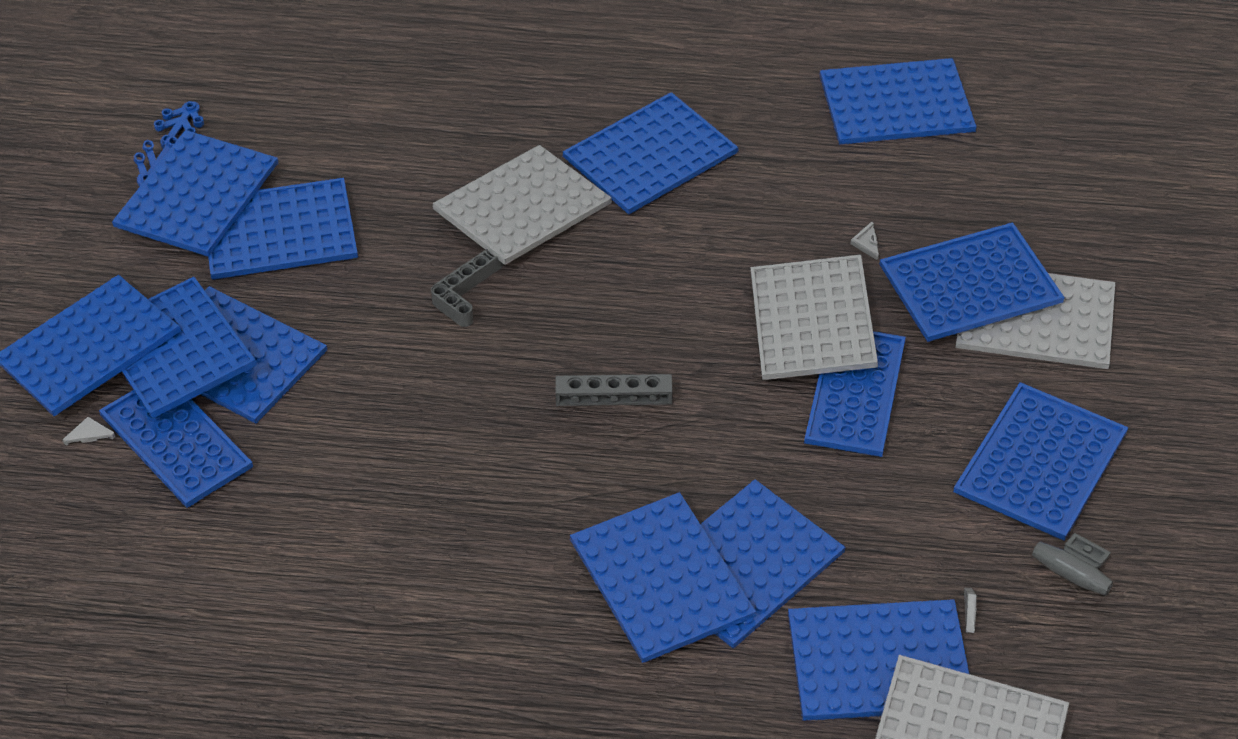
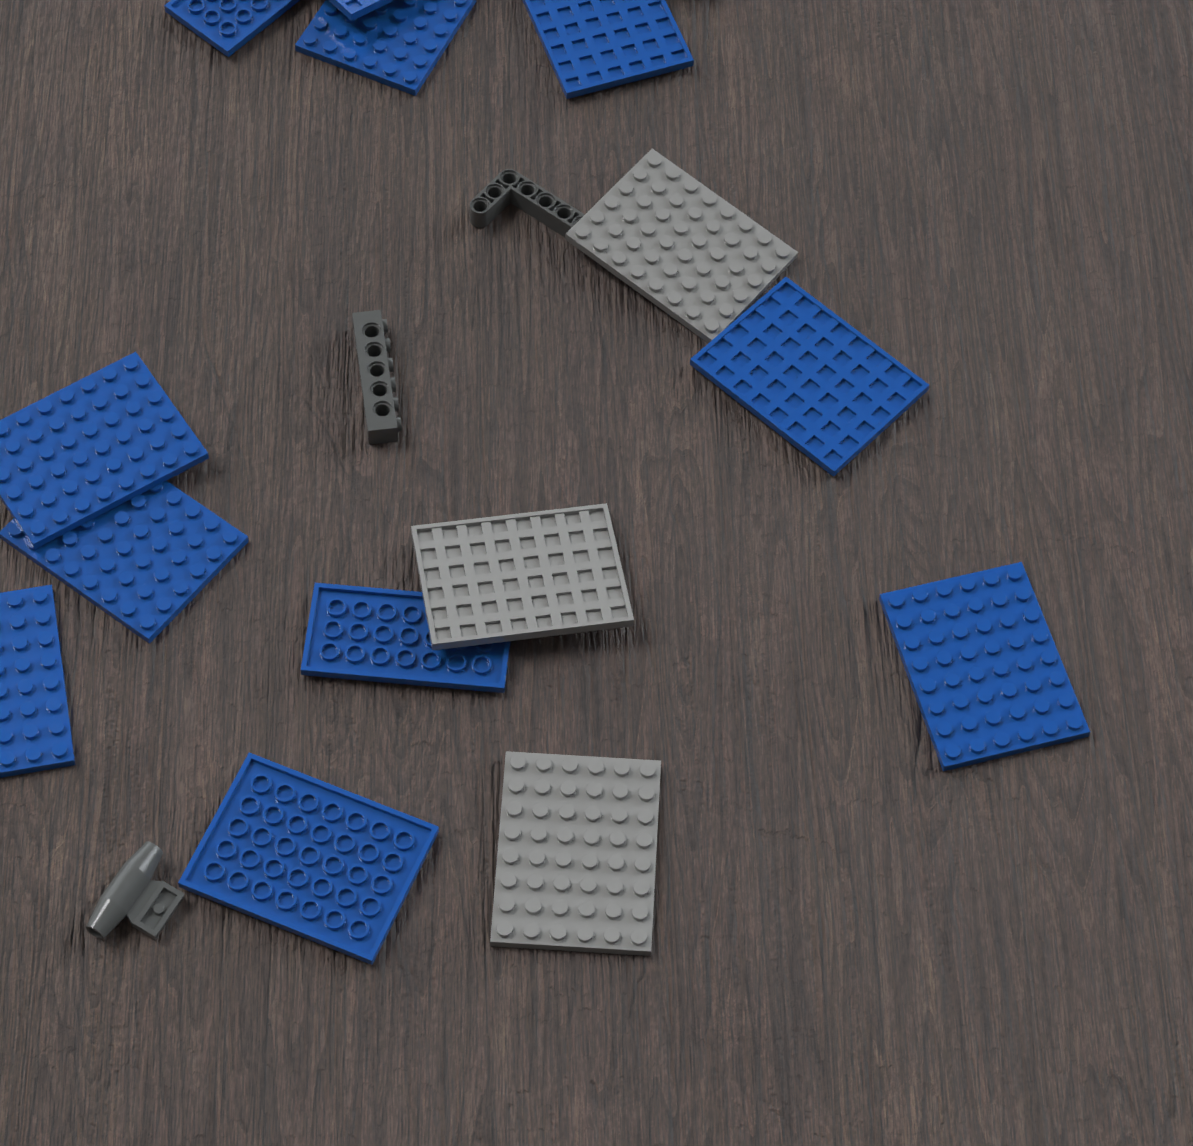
camera: 80 degrees right, 10 degrees up
(867, 241) = (687, 640): light grey tile -> none
(970, 609) = (64, 775): light grey tile -> none
(971, 281) = (611, 759): blue plate -> none

